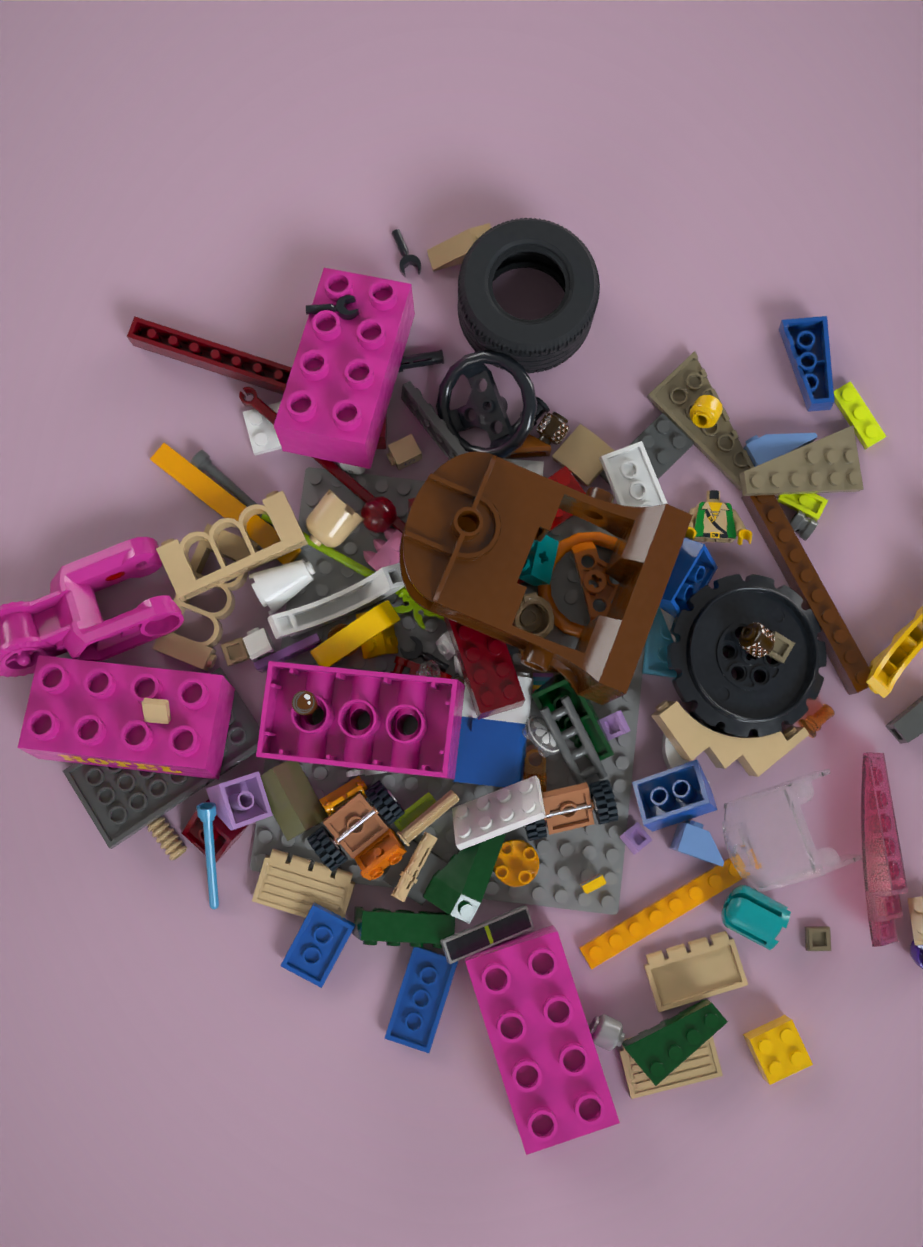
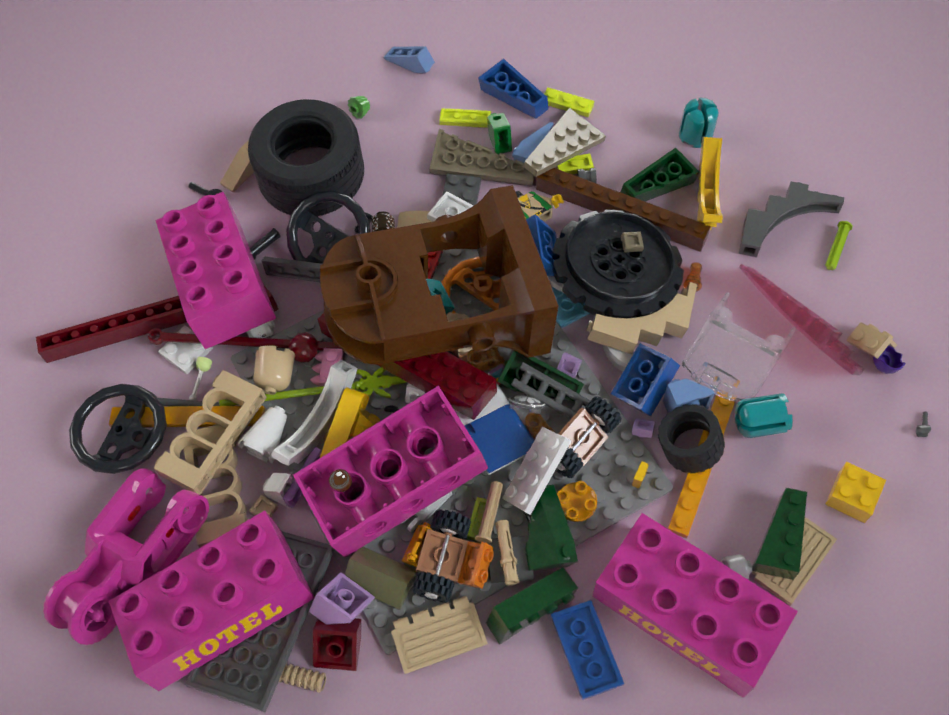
camera: 30 degrees left, 20 degrees down
(156, 710) = (230, 564): tan tile -> none
(176, 510) = (122, 431): none -> black piece
(207, 813) = (323, 624): dark azure piece -> none
(274, 460) = (202, 364): none -> hinge
(317, 945) = (479, 667): blue plate -> none
(340, 307) = (184, 228): black piece -> none
(404, 452) = (293, 301): tan brick -> none
(487, 934) = (604, 550): black tile -> none
(632, 259) = (358, 106): none -> bright green piece
(667, 860) = (684, 419): none -> black tyre
(694, 973) = (758, 487): tan hinge -> none
(706, 411) = (473, 151): yellow head -> none
(732, 234) = (411, 58): none -> medium blue slope
(734, 354) = (464, 117): none -> neon yellow tile
(753, 403) = (498, 126): none -> green torso
(757, 639) = (615, 242): dark brown head -> none
(818, 938) = (815, 405): dark tan tile -> none
(876, 585) = (661, 177): none -> dark green wedge
(900, 1041) = (924, 429): none -> dark grey hand

